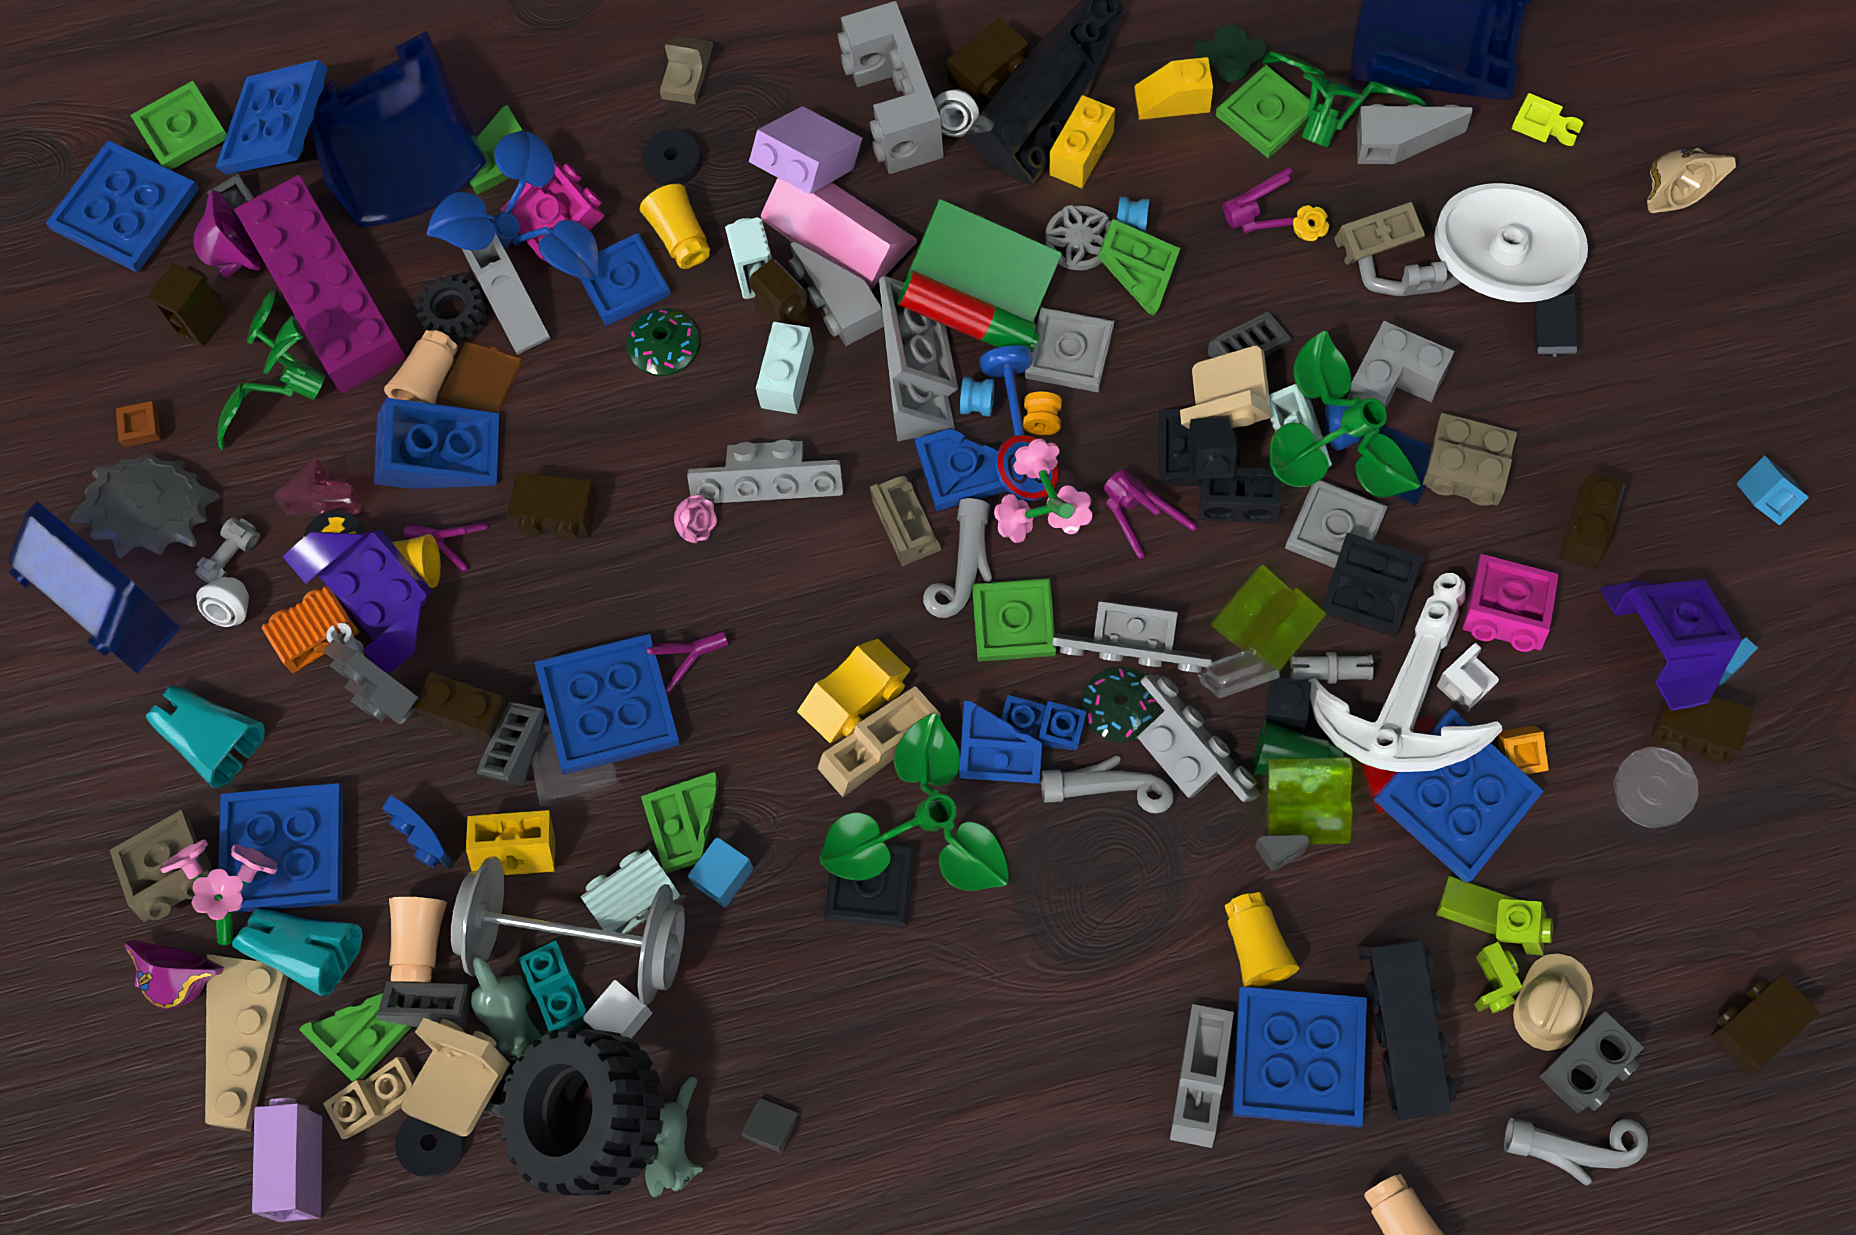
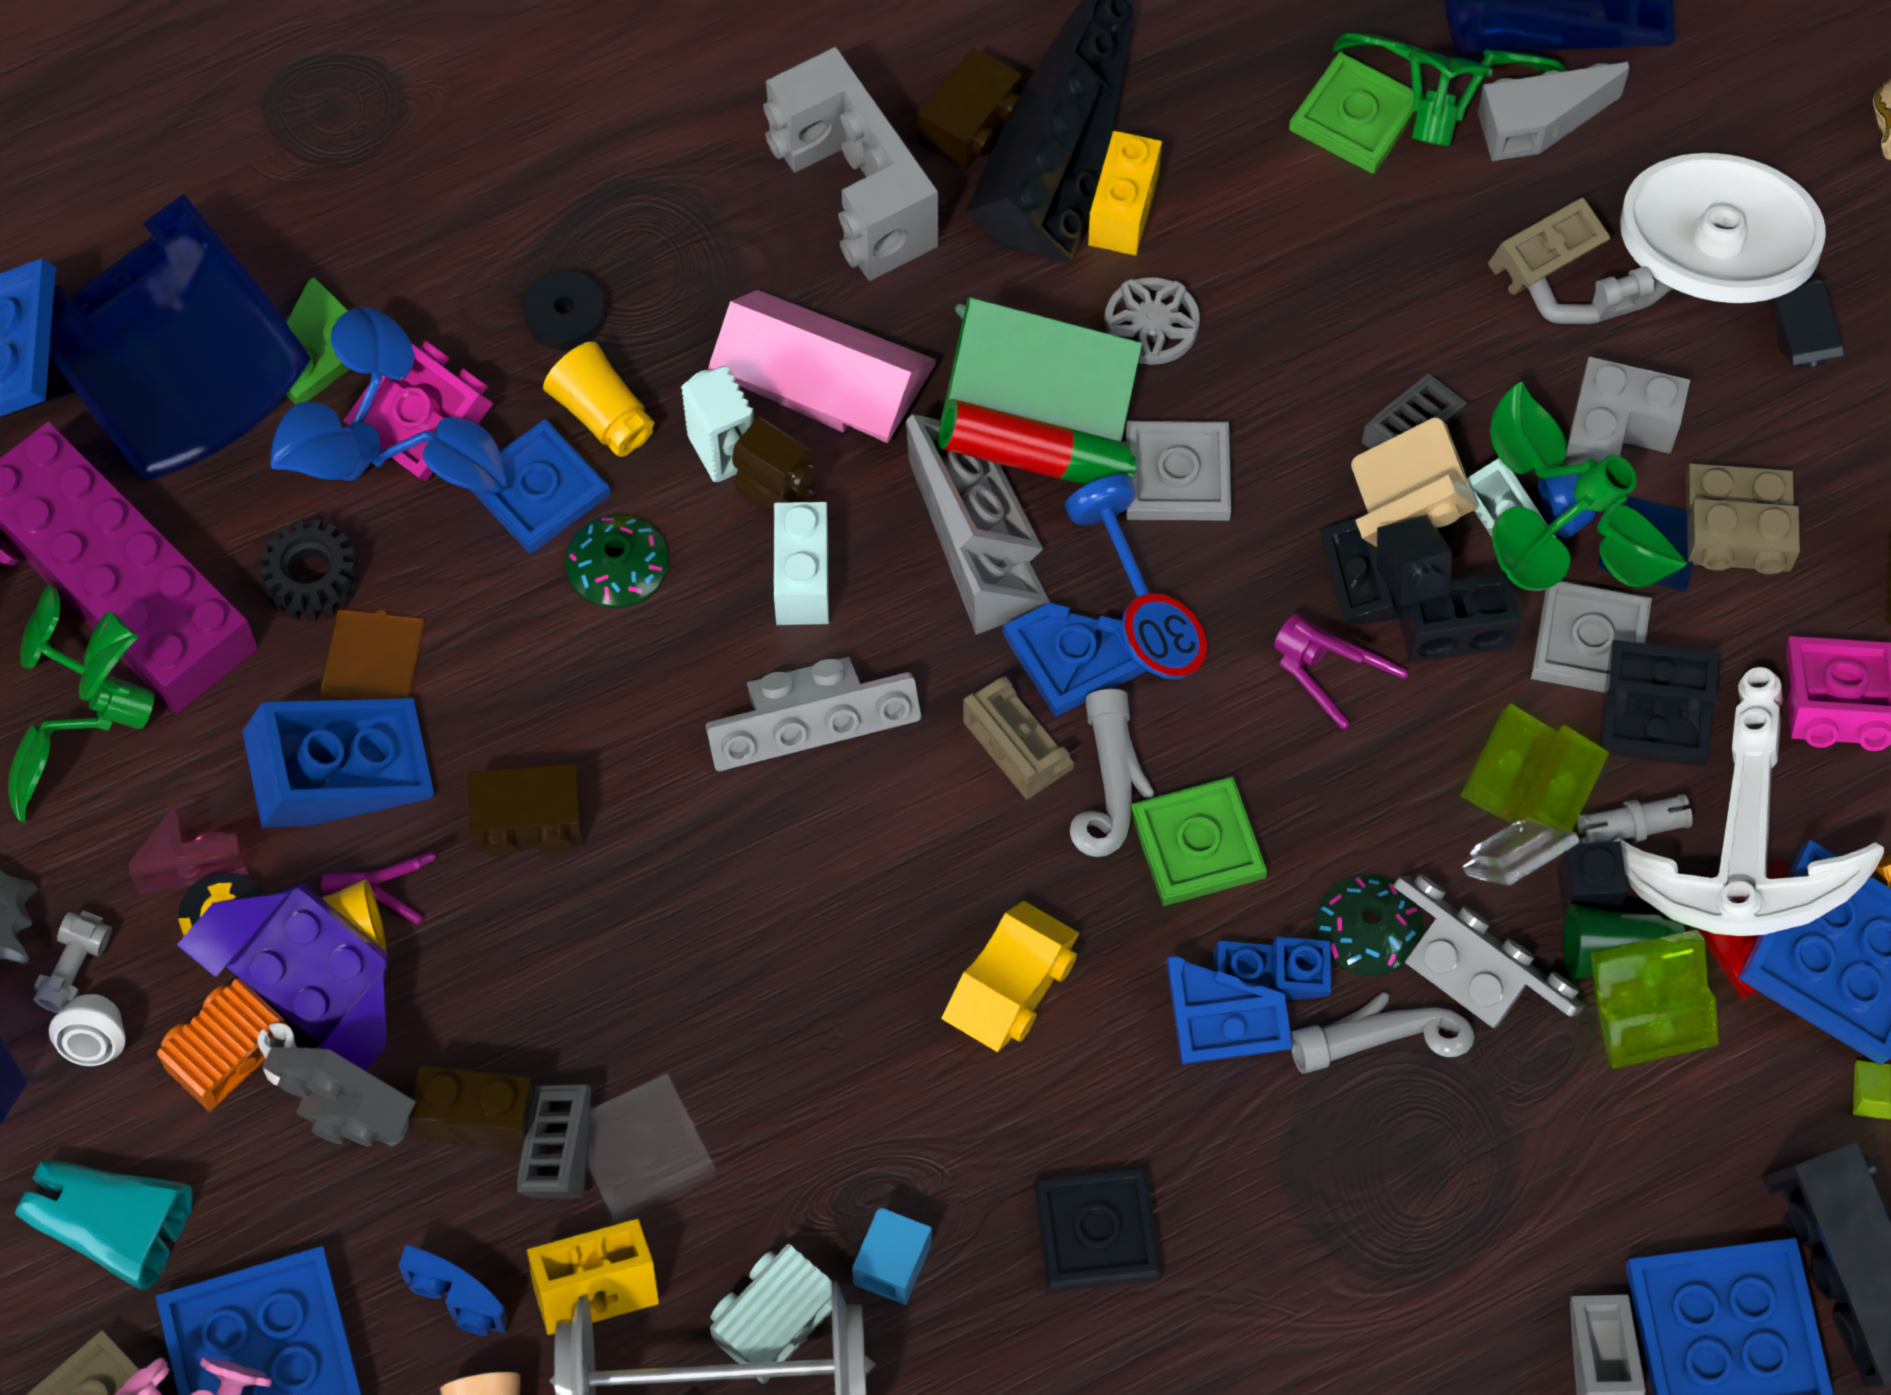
camera: 20 degrees left, 5 degrees down
(424, 369) = (294, 656): light nougat plant -> none
(507, 296) = (385, 536): light grey slope -> none
(606, 704) = (673, 1062): blue plate -> none
(682, 820) = (818, 1198): bright green wing -> none
(685, 69) = (552, 188): dark tan slope -> none
(694, 648) = (773, 965): magenta plant -> none
(695, 518) = (729, 788): bright pink plate -> none
(805, 150) = (756, 266): lavender brick -> none
(843, 296) = (854, 454): light grey slope -> none
(873, 742) = (1058, 1037): tan slope -> none
(931, 757) = (1140, 1043): green plant -> none
(956, 111) = (953, 180): white cone -> none
(977, 396) = (1072, 554): dark azure wheel -> none
(1042, 413) = (1166, 560): light orange wheel -> none
(1066, 509) = (1230, 679): bright pink plant -> none
(1133, 213) = (1217, 279): dark azure wheel -> none
(1134, 633) = (1364, 824): light grey bracket -> none
(1138, 262) = (1242, 339): bright green wing -> none
(1176, 90) = (1231, 104): yellow slope -> none
(1231, 52) = (1288, 43): clear green plate -> none
(1242, 209) = (1361, 245): magenta plant -> none
(1258, 942) = (1637, 1195): yellow plant -> none
(1281, 850) = (1632, 1070): dark grey slope -> none
(1302, 227) = (1446, 257): yellow plate -> none
(1467, 679) = (1813, 803): white panel -> none
(1542, 118) = (1717, 62): neon yellow plate -> none

